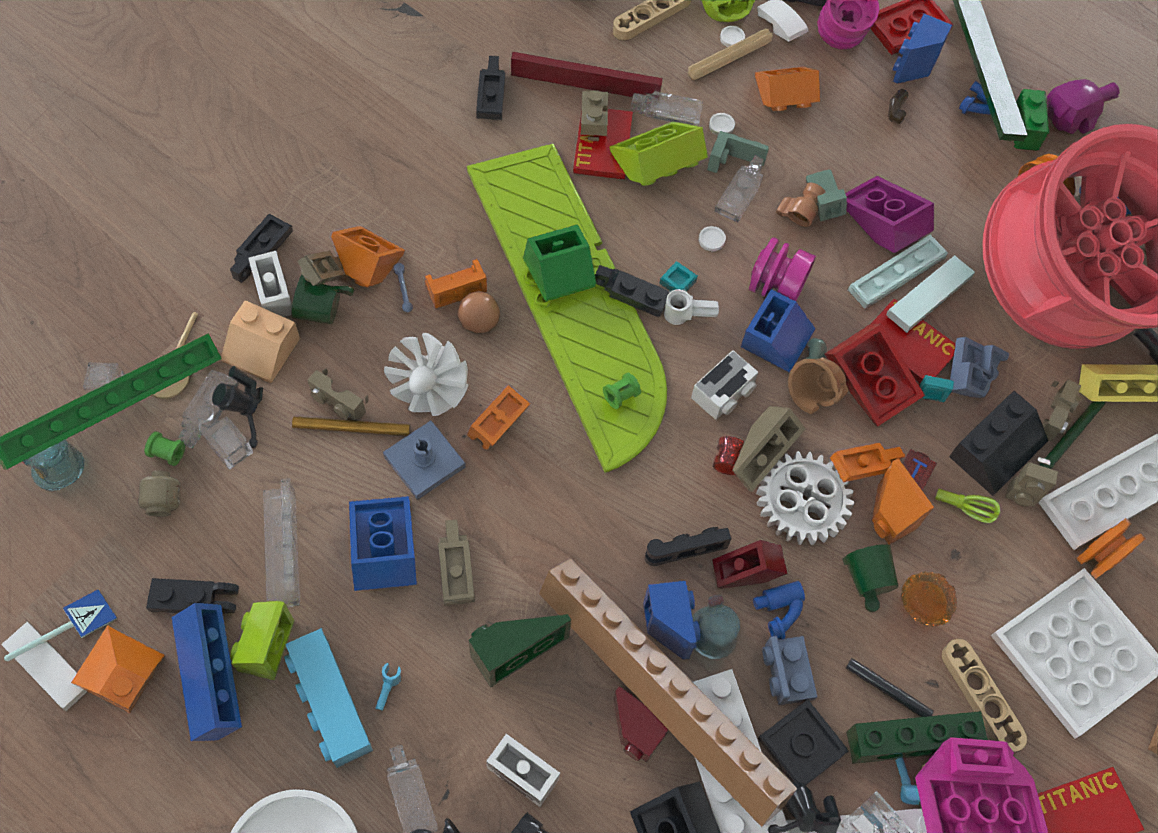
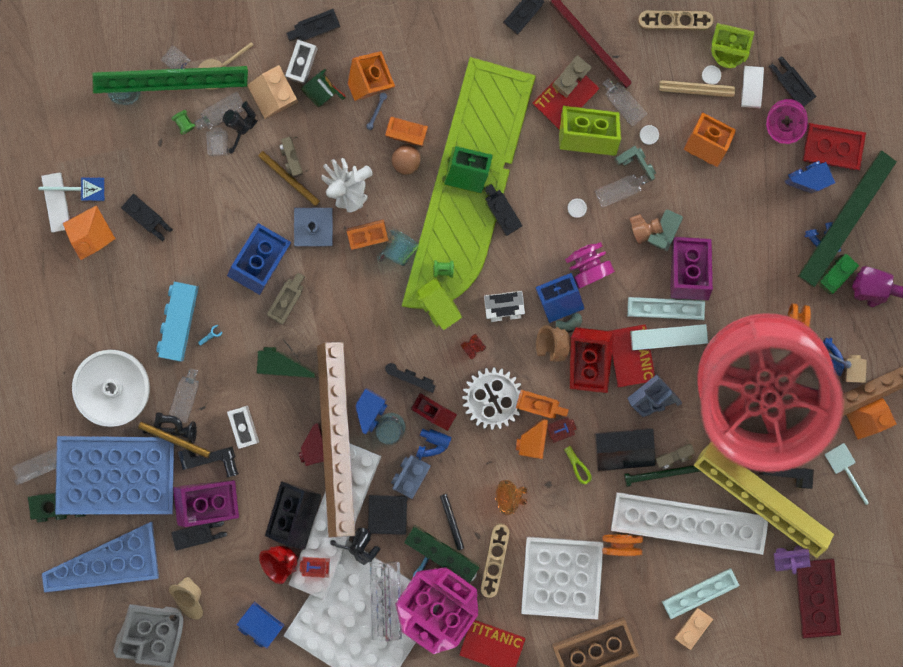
camera: 45 degrees right, 25 degrees up
(159, 494) = (164, 148): dark tan head -> none
(206, 672) = (128, 266): blue brick -> none
(263, 639) = (164, 269): lime slope -> none
(281, 544) = (207, 222): clear fence -> none
(321, 267) = (332, 77): dark tan hinge -> none
(549, 405) = (399, 248): none -> clear light blue hat
(652, 426) = (438, 302): none -> lime brick
(678, 278) = (535, 220): teal tile -> none
(689, 307) = (526, 246): white axle -> none
(766, 444) = (495, 356): dark tan slope -> none
(872, 573) = (490, 463): dark green hat -> none
(896, 102) = (766, 200): dark brown arm -> none
(936, 388) = (617, 393): teal tile -> none
(1032, 483) = (613, 483): dark tan piece -> none

